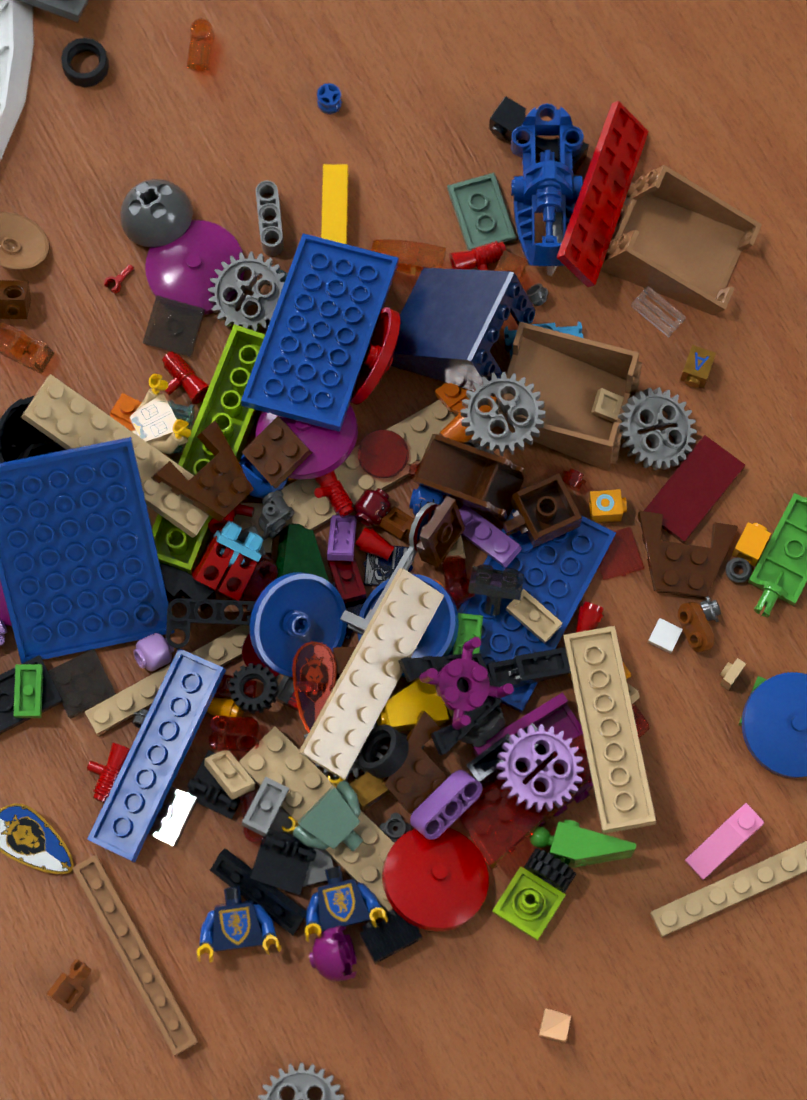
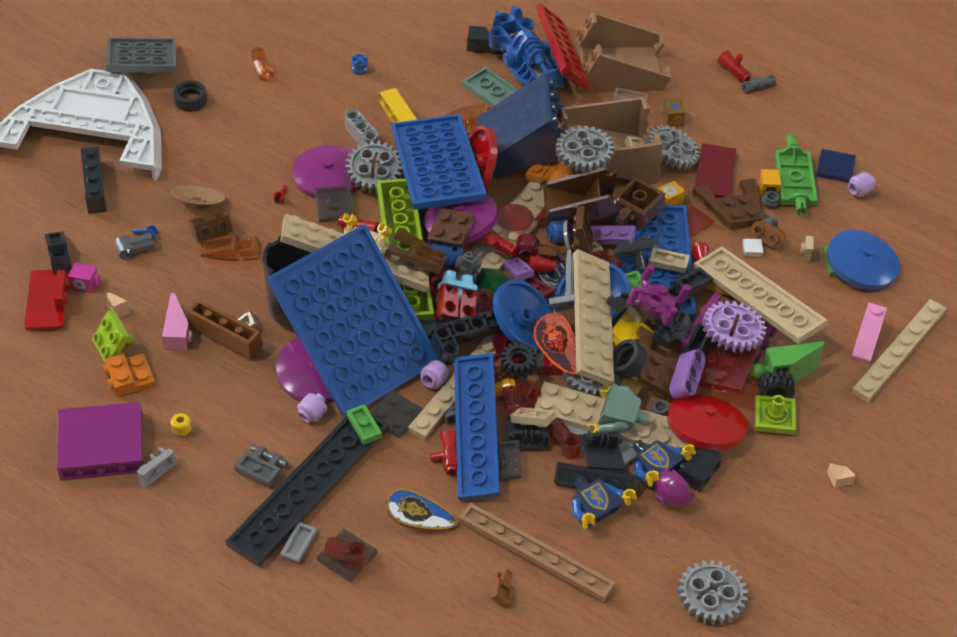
camera: 30 degrees left, 25 degrees down
(155, 213) = (285, 150): dark grey piece -> none
(265, 806) = (571, 421): light grey plate -> none

